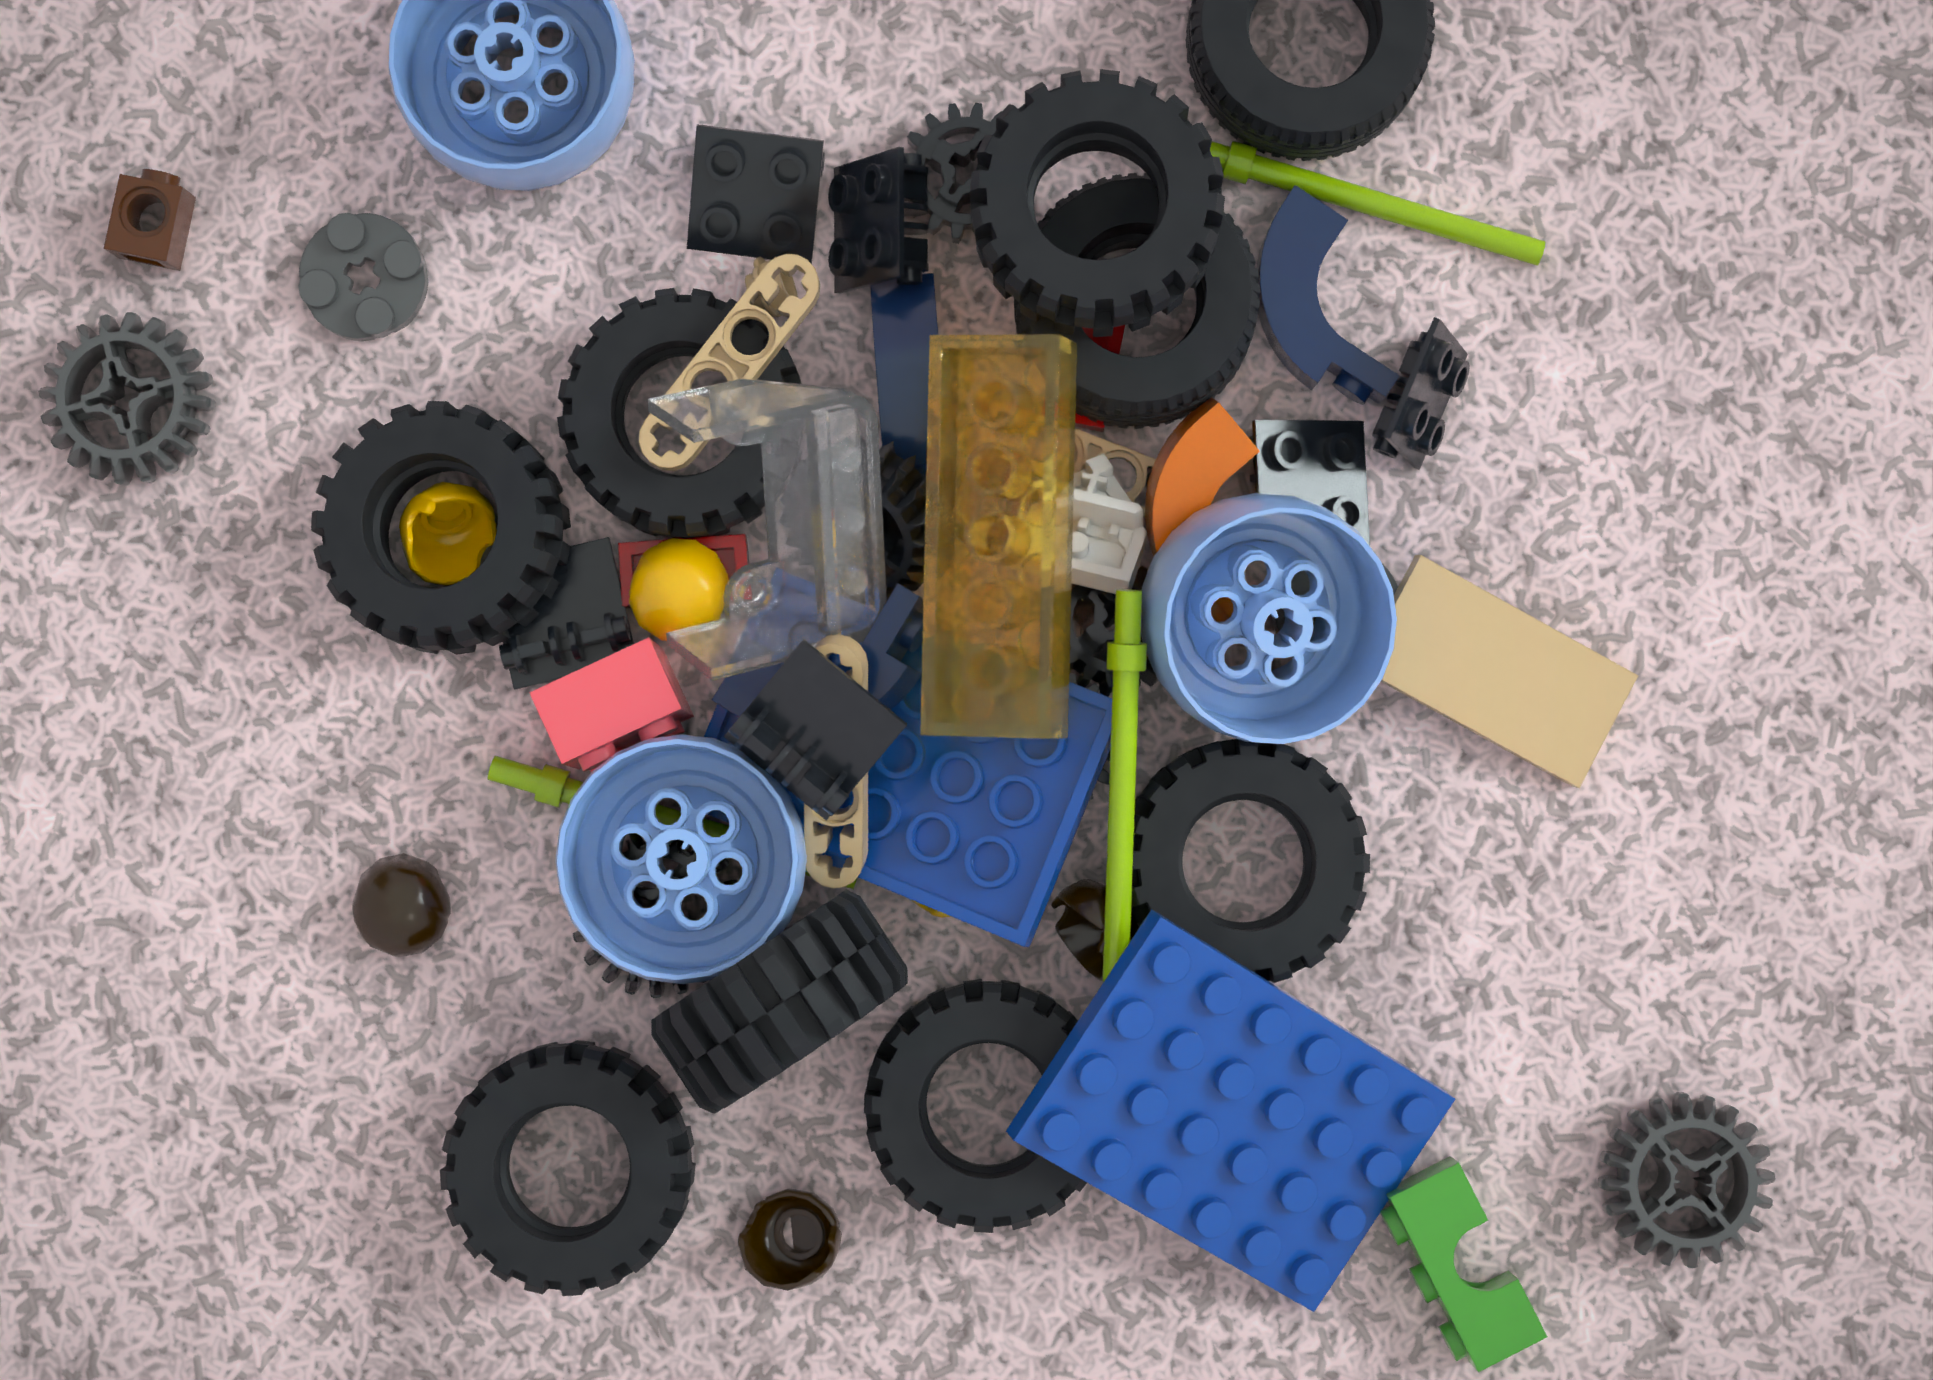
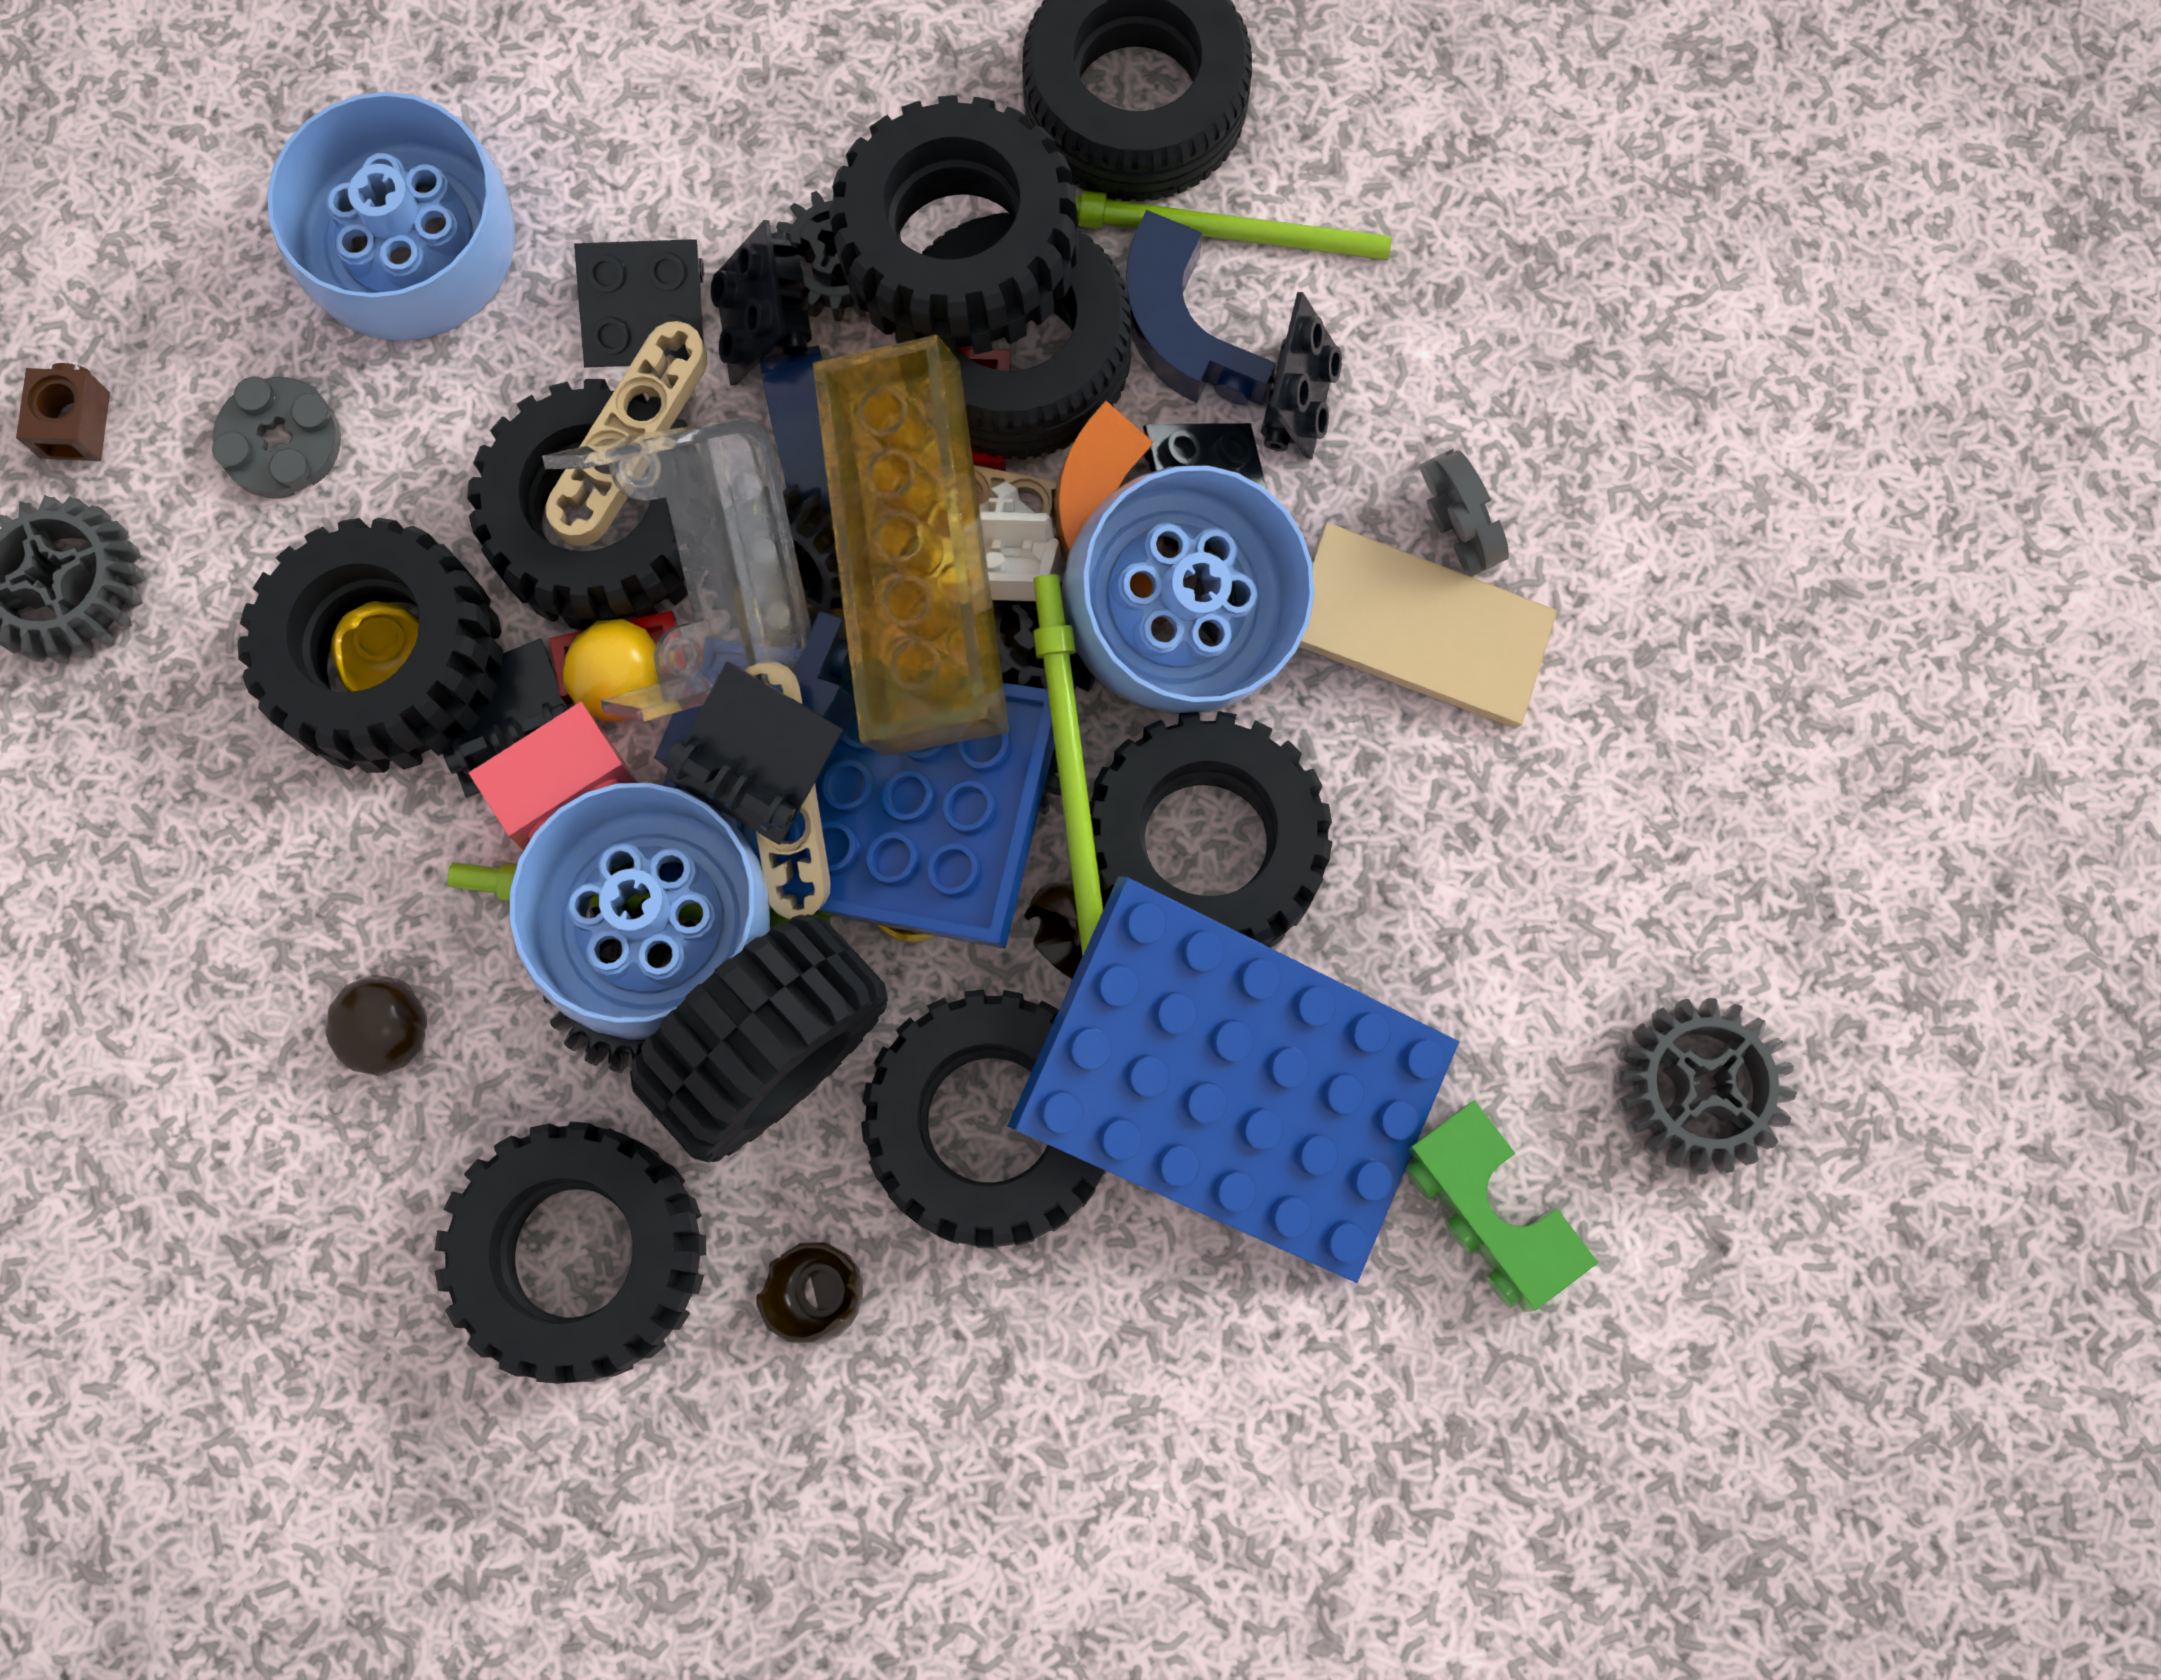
camera: 10 degrees left, 10 degrees down
(1562, 559) = (1461, 506): none -> dark grey plate

